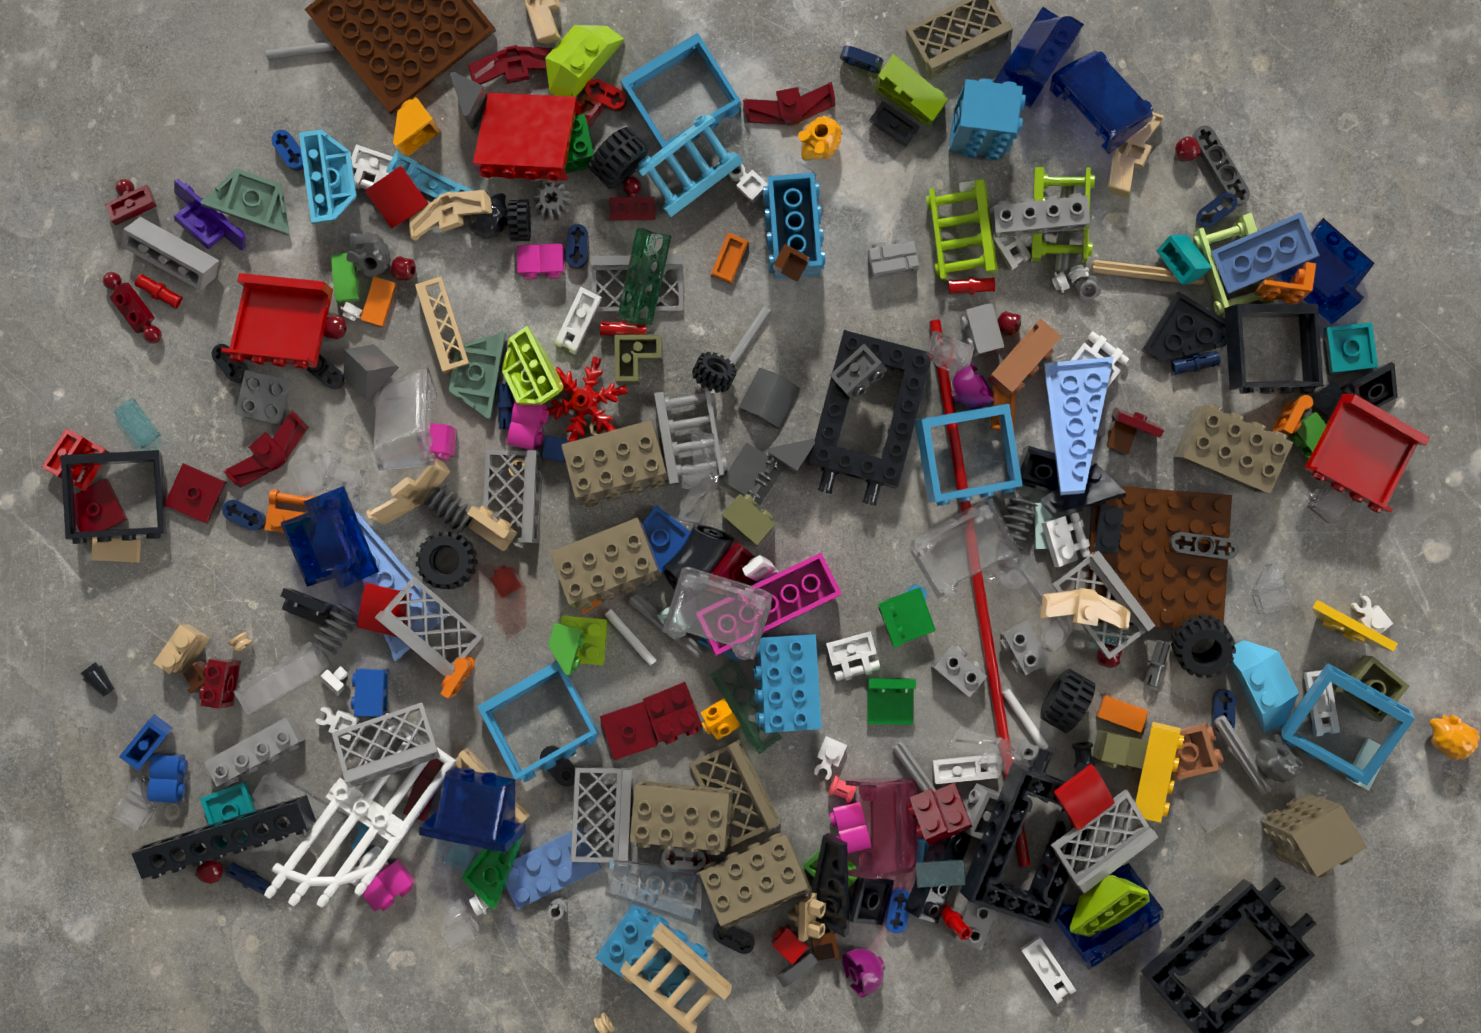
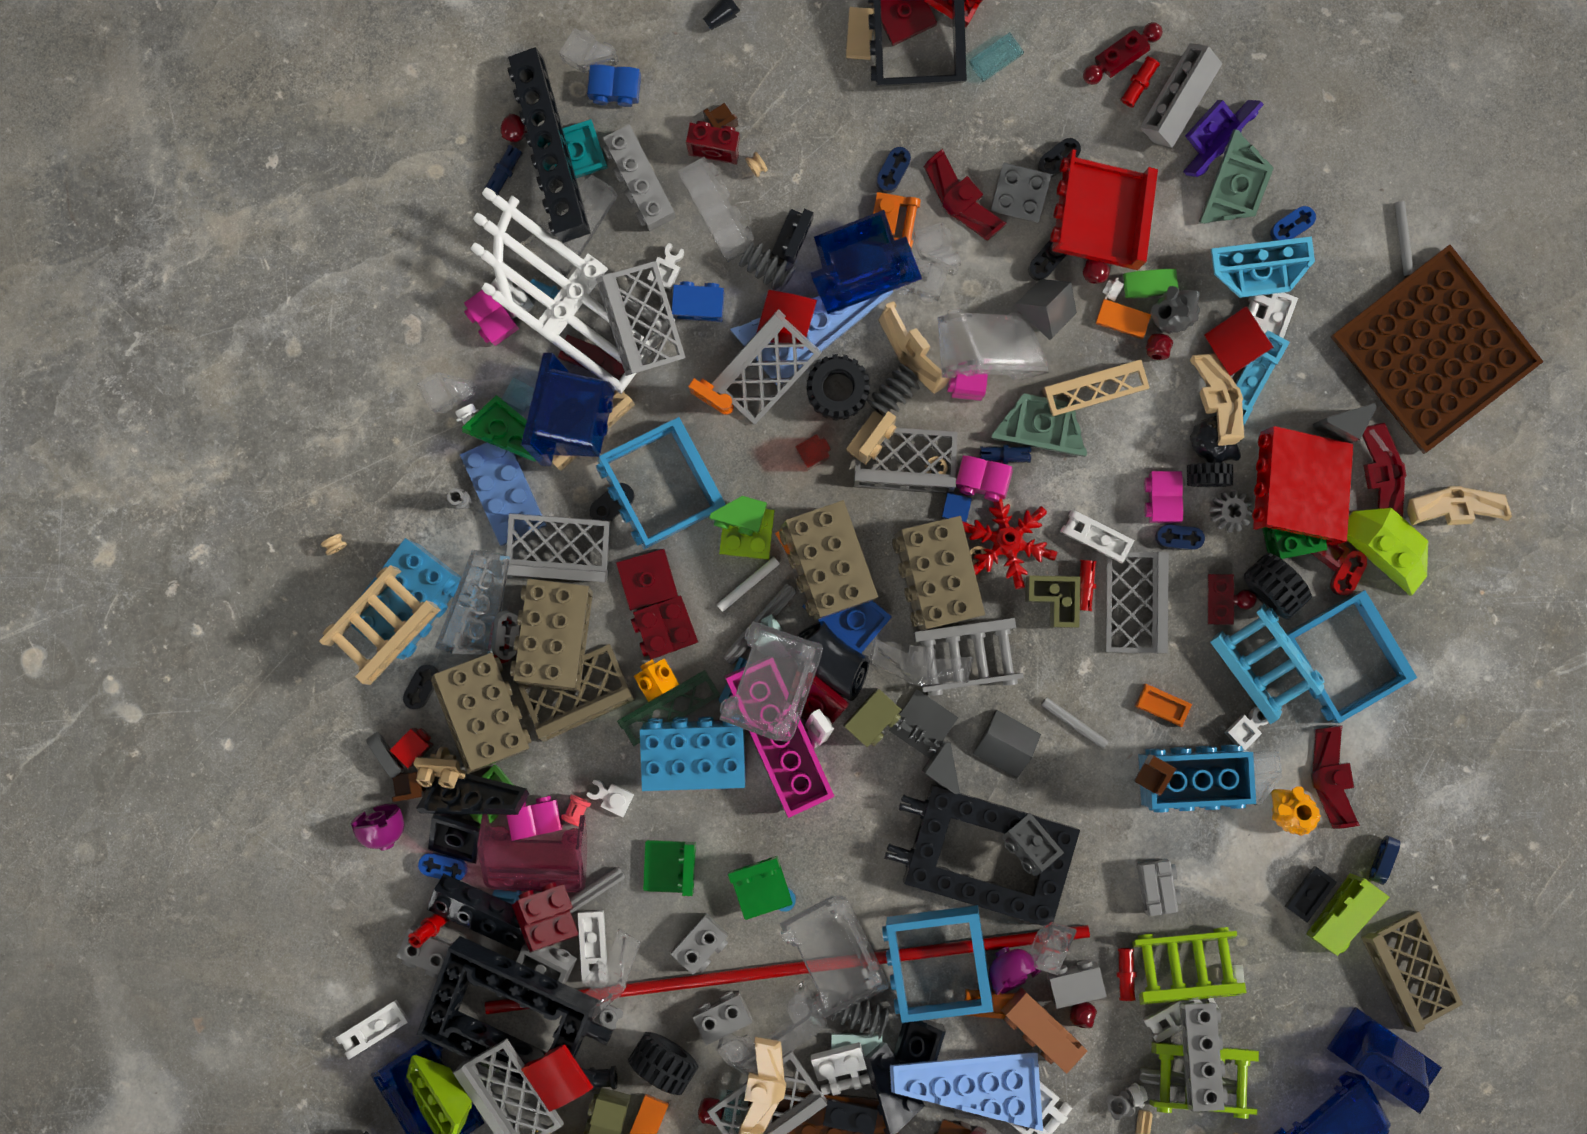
camera: 90 degrees right, 0 degrees up
(131, 203) = (1237, 53): dark red plate -> none
(145, 742) = (652, 63): blue brick -> none
(181, 650) = (750, 102): tan window -> none
(195, 493) = (918, 118): dark red plate -> none
(334, 681) = (711, 263): white tile -> none
(413, 127) = (1315, 361): light orange slope -> none
(530, 370) = (1043, 482): lime wedge -> none
(639, 276) = (1143, 606): clear green fence -> none
(714, 372) = (1036, 684): black tyre -> none
(851, 649) = (727, 825): white plate -> none
(940, 873) = (480, 915): clear light blue tile -> none
(986, 119) = (1313, 999): dark azure brick -> none
(1025, 719) = (645, 1014): white bar -> none
(1060, 282) = (1128, 1074): white plate -> none

